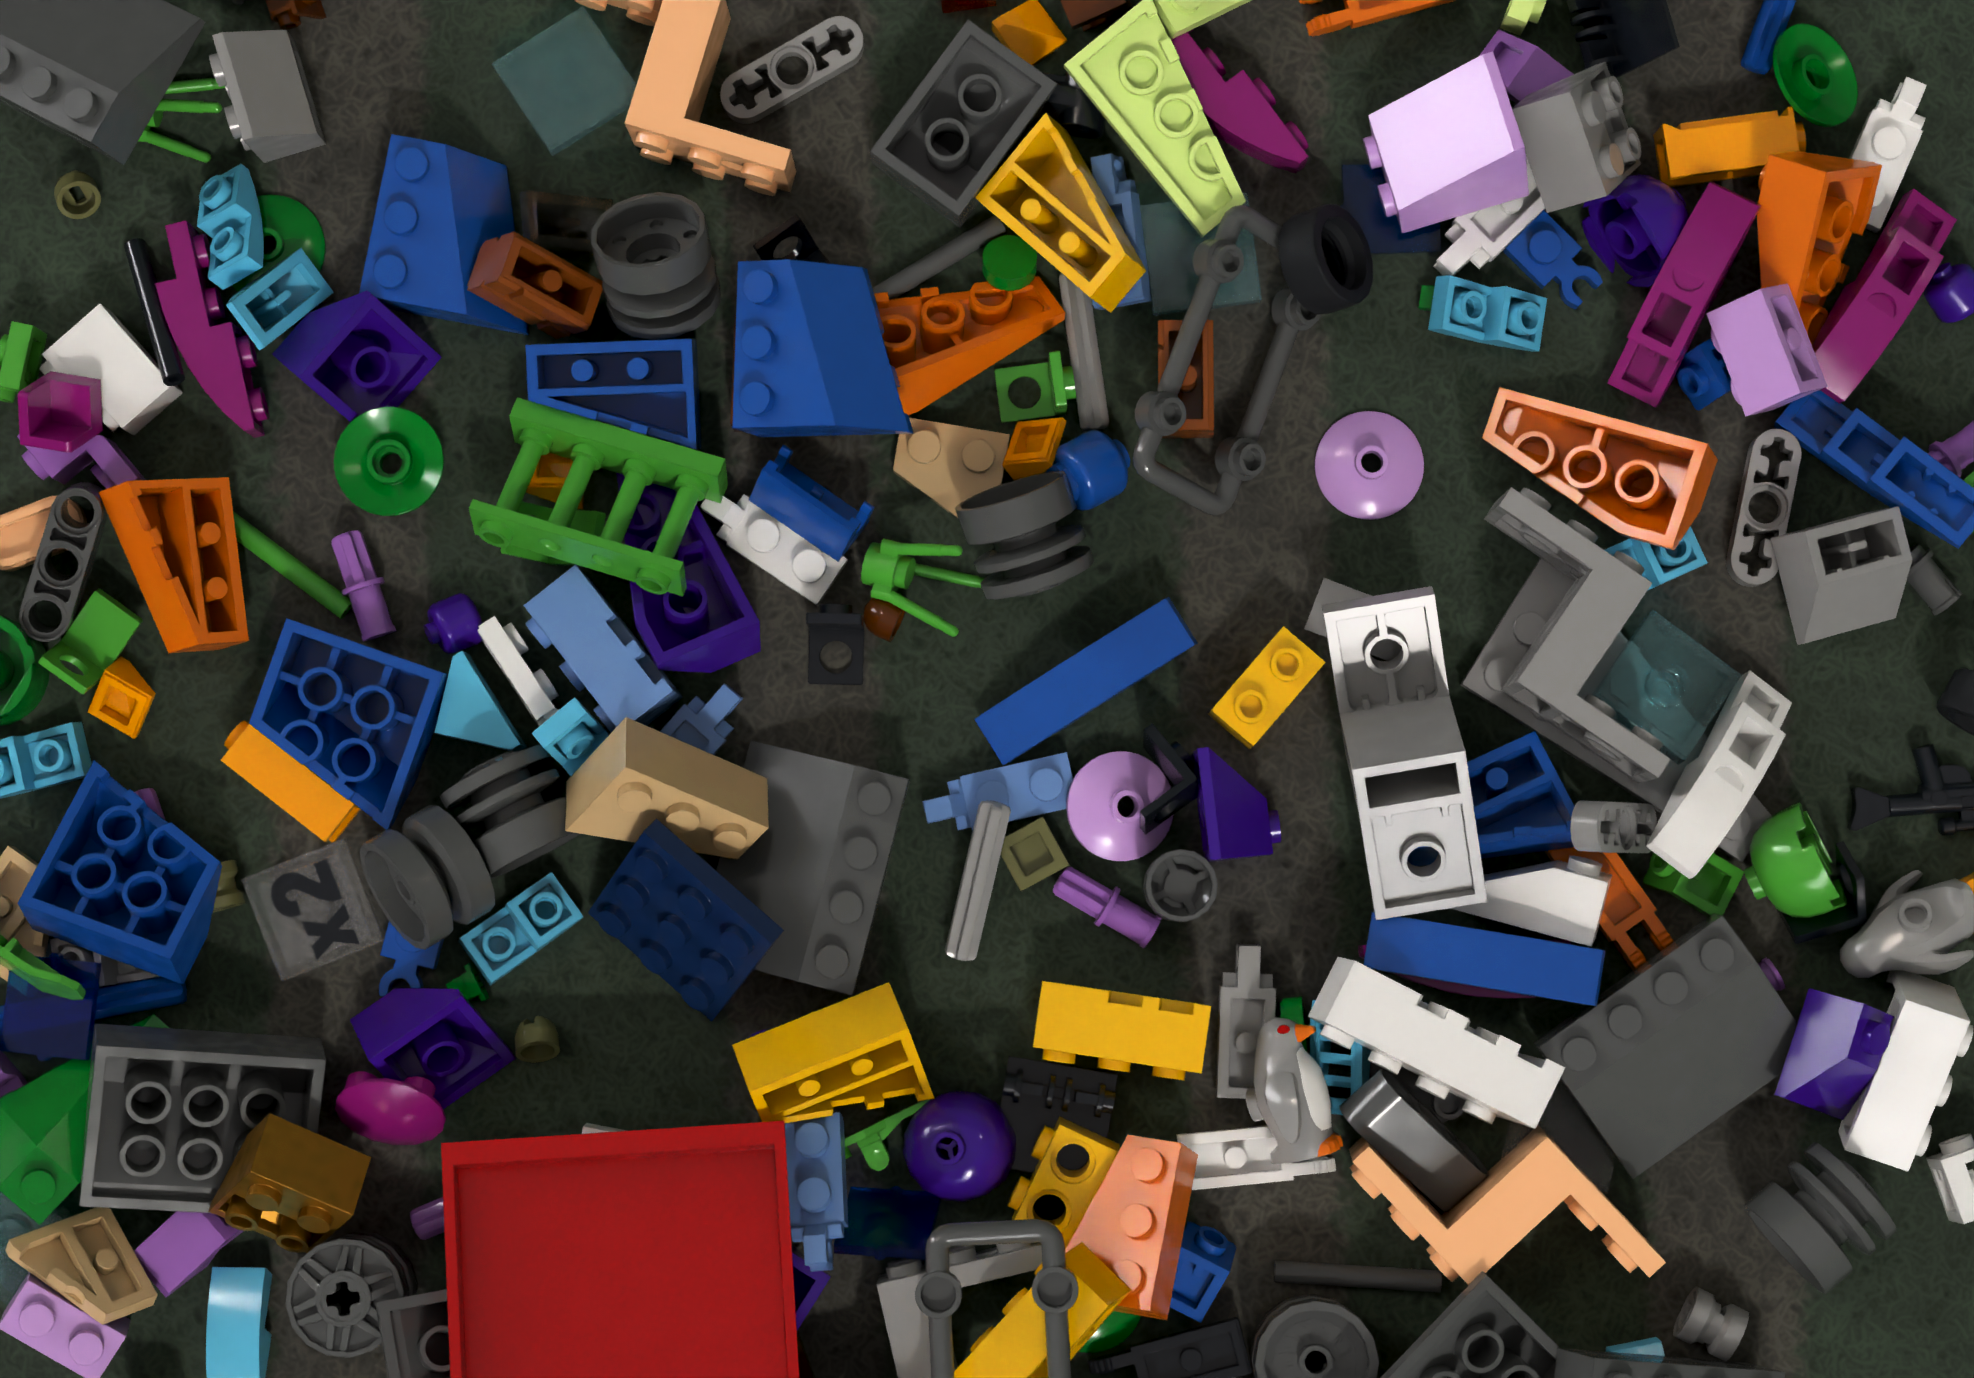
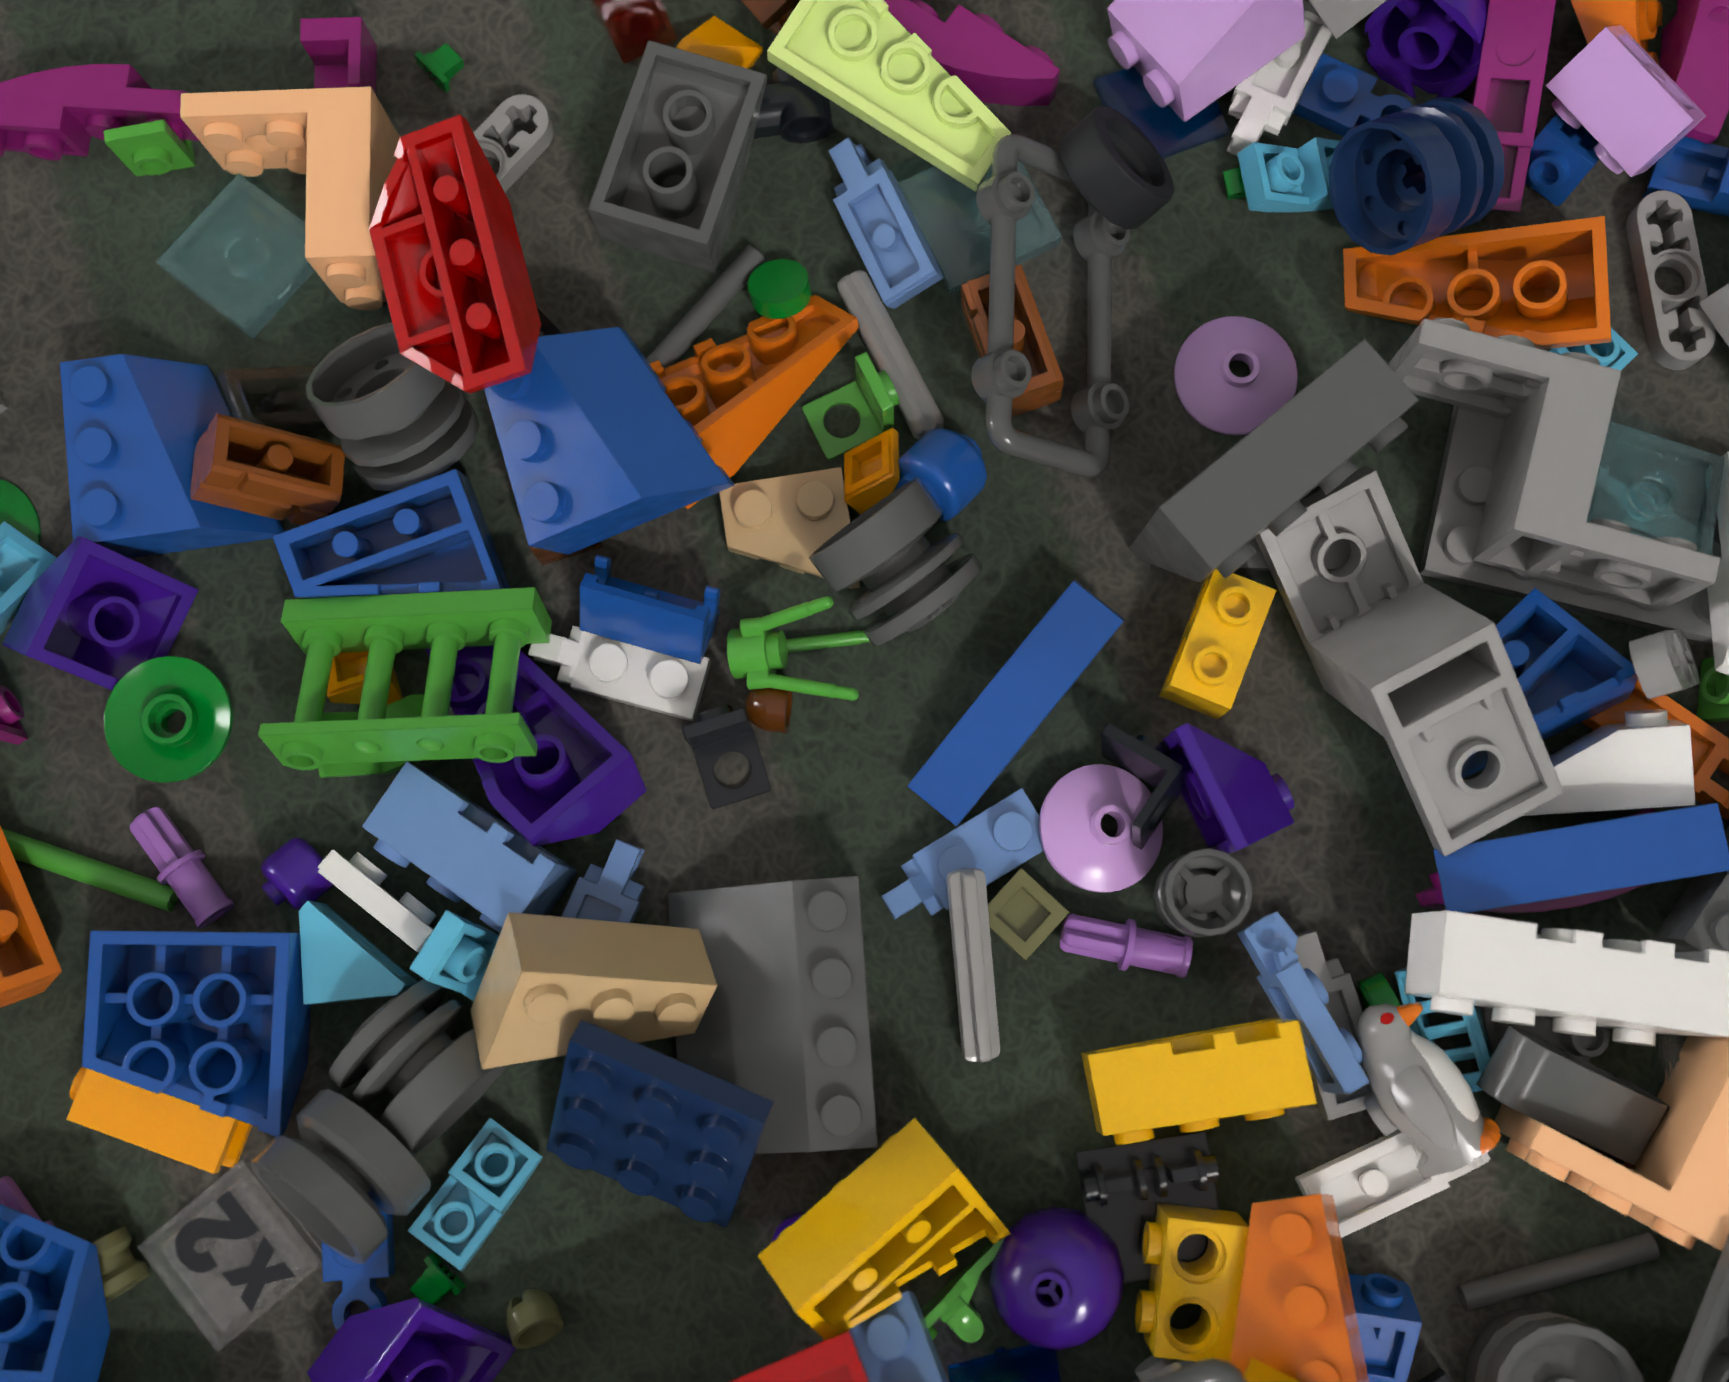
camera: 15 degrees left, 5 degrees down
(746, 182) = (454, 261): none -> red wedge
(1062, 214) = (816, 213): yellow wedge -> none
(1224, 994) = (1300, 996): none -> medium blue hinge
(1353, 566) = (1276, 466): none -> dark grey slope
(1569, 353) = (1416, 175): none -> dark blue wheel

